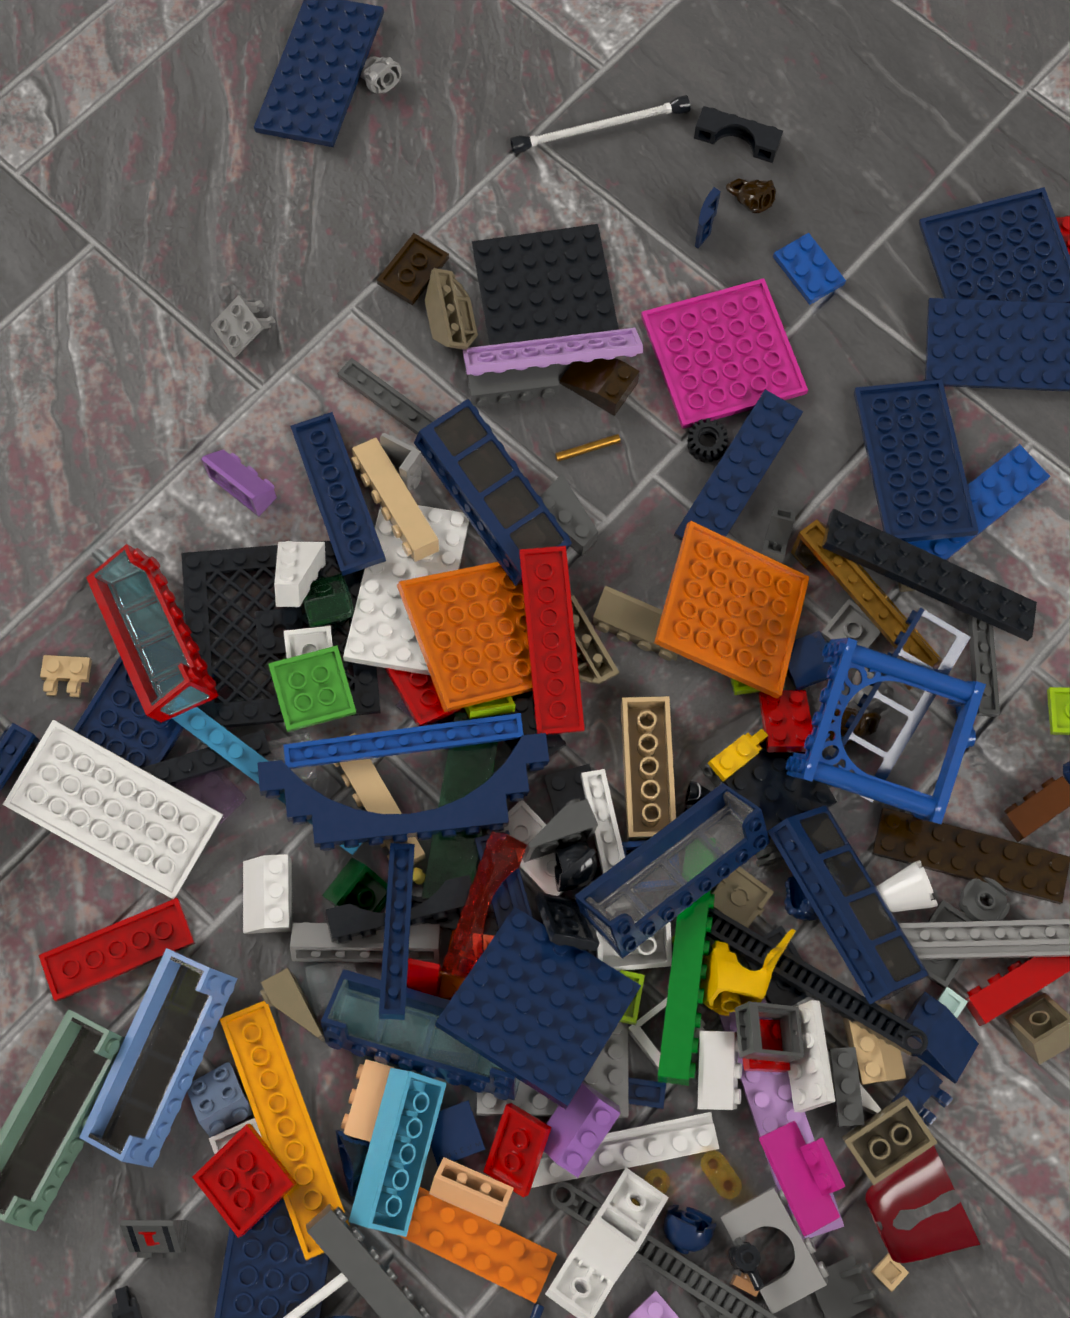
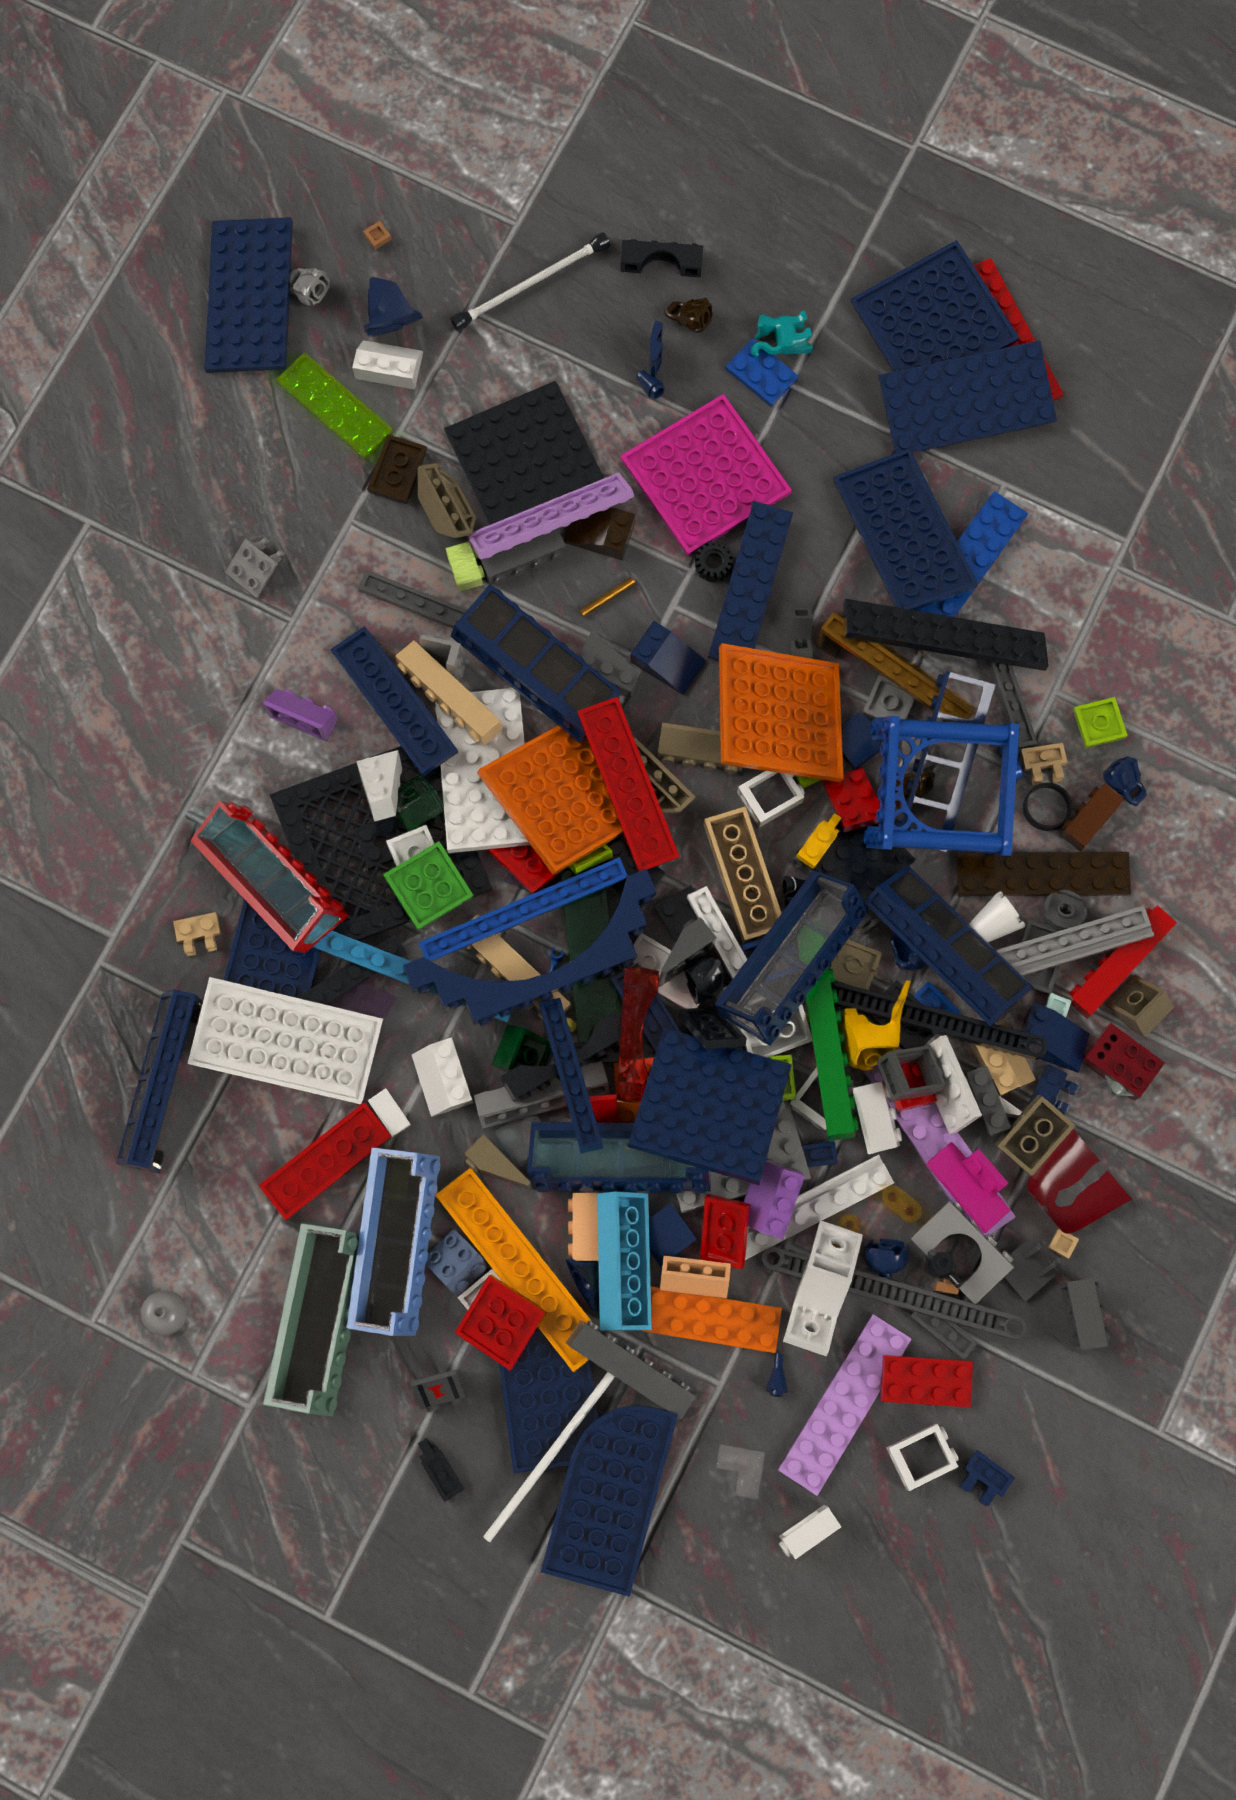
camera: 15 degrees left, 5 degrees up
(200, 916) = (389, 1112): none -> white tile
(370, 193) = (334, 406): none -> clear neon green plate
(424, 803) = (555, 959): none -> blue hand
(434, 167) = (387, 364): none -> white slope
(449, 111) = (387, 308): none -> dark blue piece
(450, 380) = (464, 566): none -> yellowish green brick
(462, 44) = (377, 235): none -> medium nougat plate
(631, 523) = (667, 658): none -> dark blue slope
(678, 699) = (755, 809): none -> white window
(692, 251) = (651, 385): none -> dark blue cone
(815, 955) = (930, 996): none -> blue plate
(844, 240) = (785, 332): none -> teal animal
(1002, 731) = (1044, 757): none -> tan plate
(1007, 1086) = (1122, 1063): none -> dark red piece
(1010, 768) = (1056, 787): none -> black tyre

